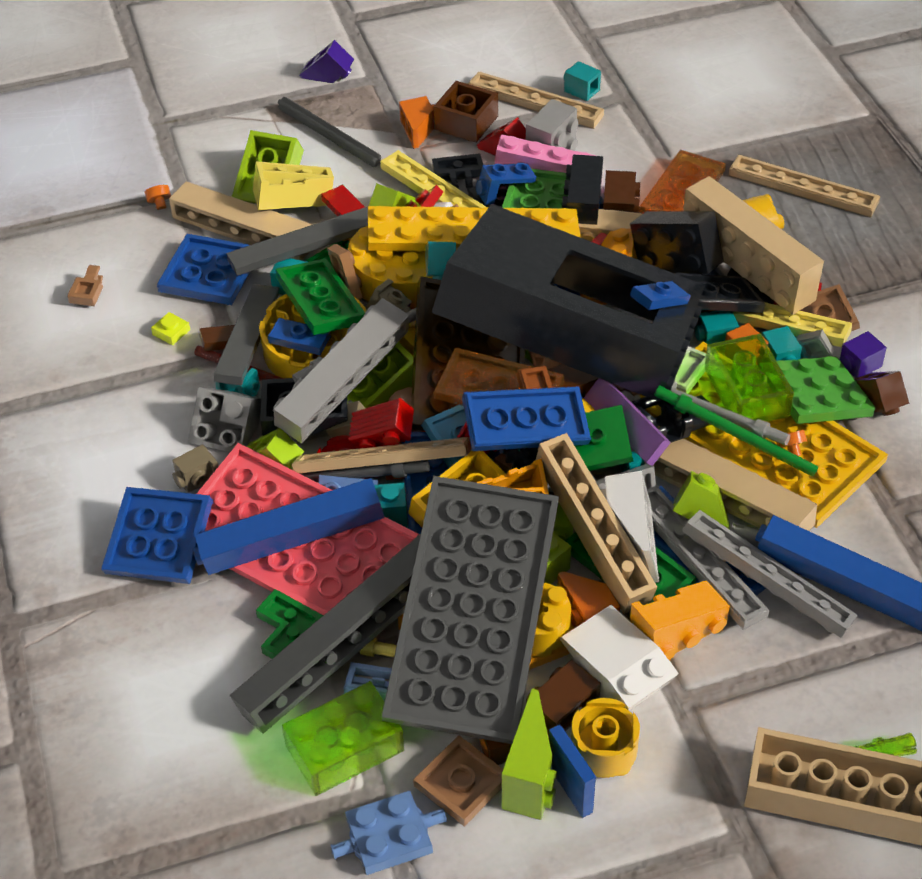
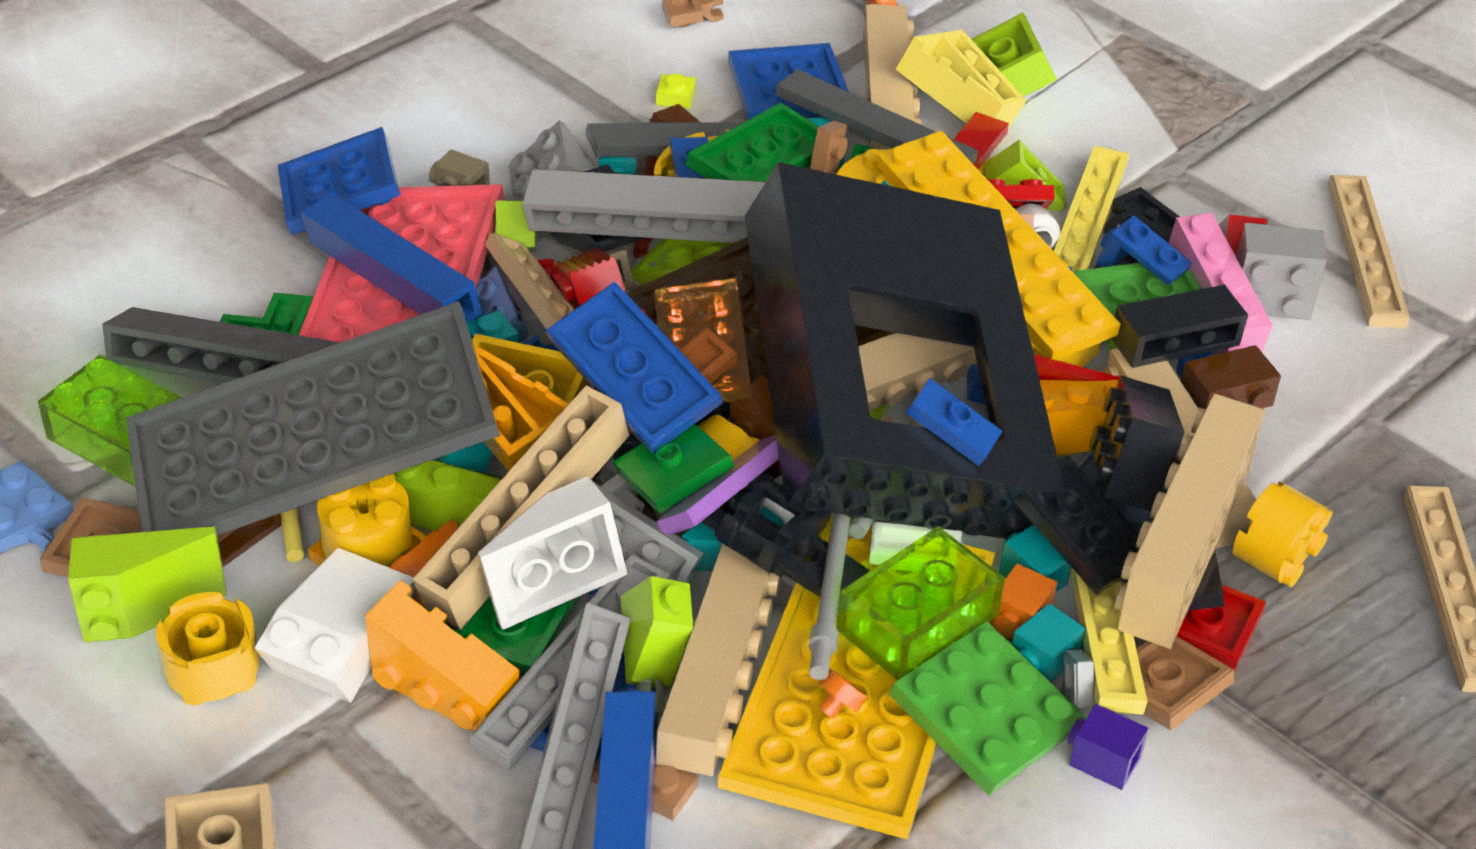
camera: 60 degrees right, 5 degrees down
(328, 64) = (1238, 45): dark purple slope -> none
(329, 131) = (1119, 91): dark grey axle -> none
(417, 119) = (1206, 153): orange slope -> none
(466, 111) = (1258, 182): reddish brown brick -> none
(565, 693) = (257, 583): reddish brown brick -> none
(572, 771) = (126, 623): blue tile -> none
(582, 81) = (1444, 276): teal brick -> none
(681, 173) = (1327, 448): clear orange plate -> none
(684, 404) = (789, 528): green bar -> none
(884, 390) = (1040, 787): reddish brown slope -> none

